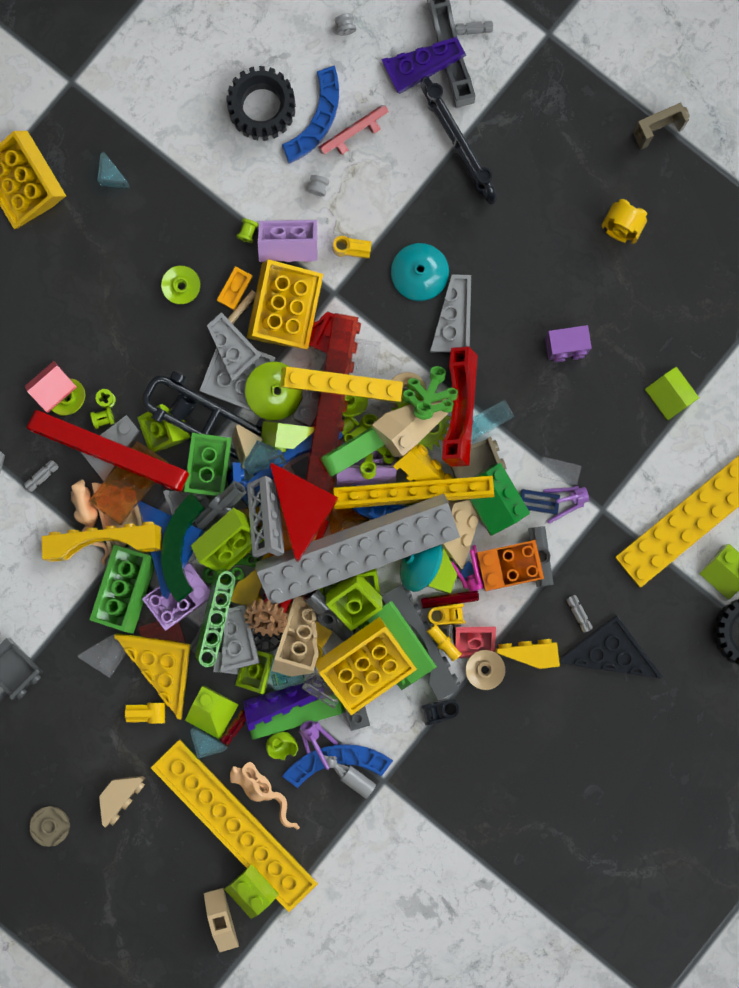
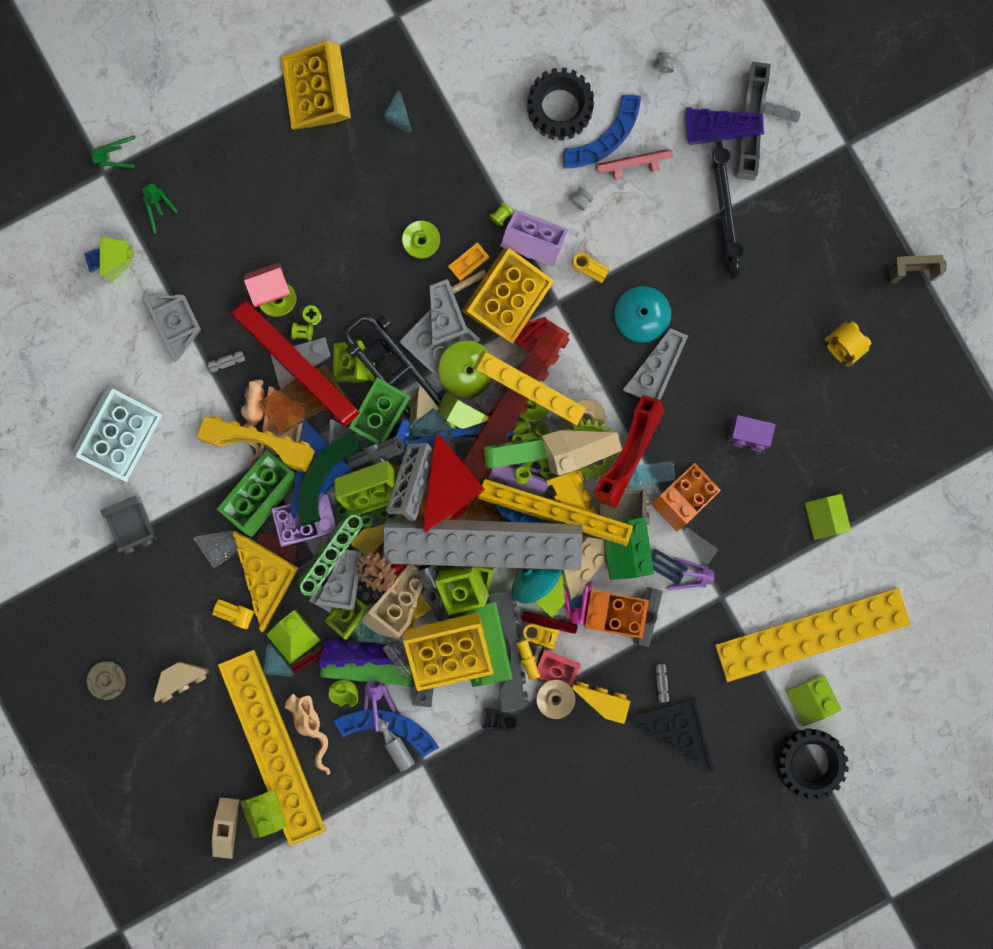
camera: 20 degrees right, 0 degrees up
(424, 409) = (595, 441): bright green plant -> none
(530, 429) = (685, 497): none -> orange slope

